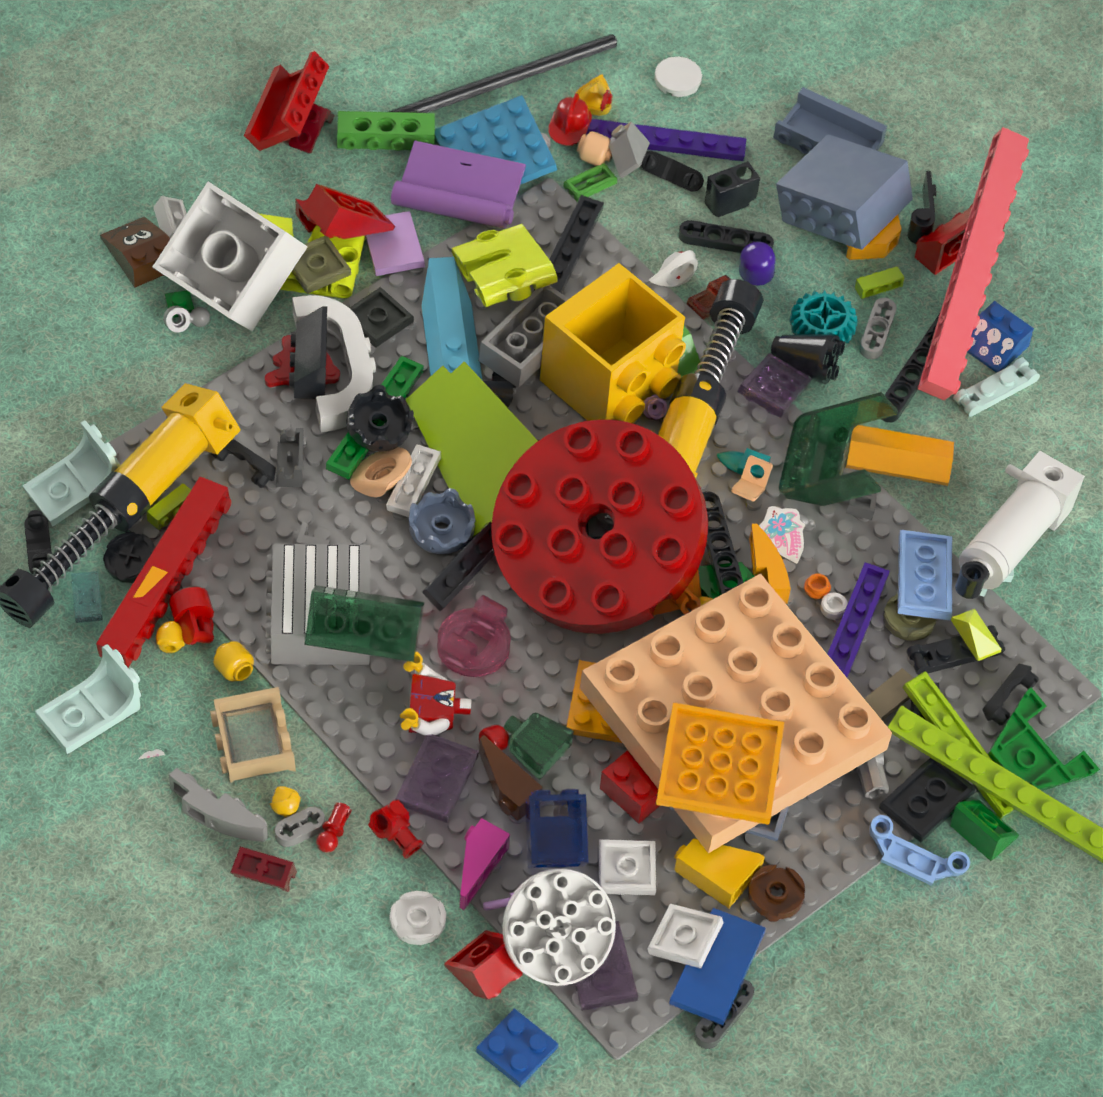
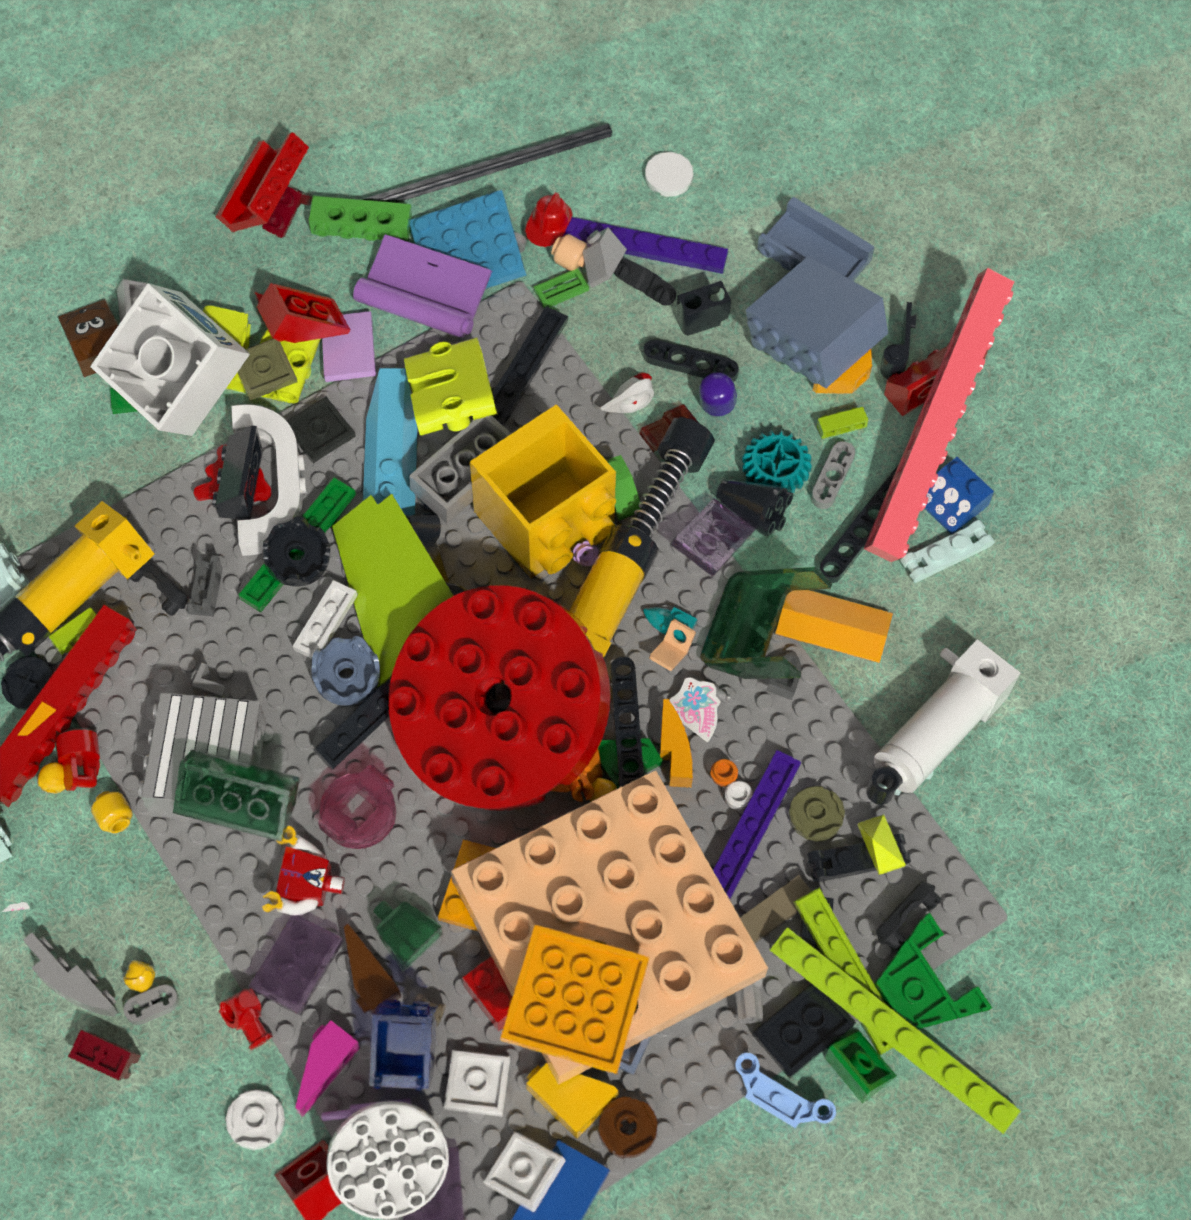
camera: 10 degrees right, 10 degrees up
(199, 317) = (123, 422): light grey plate -> none
(252, 734) = (118, 897): window -> none
(333, 828) = (176, 1023): red pin -> none
(381, 472) = (292, 608): light nougat hat -> none
(497, 735) = (363, 922): red piece -> none
(597, 96) = (580, 192): yellow piece -> none
(925, 575) = (838, 769): light blue tile -> none

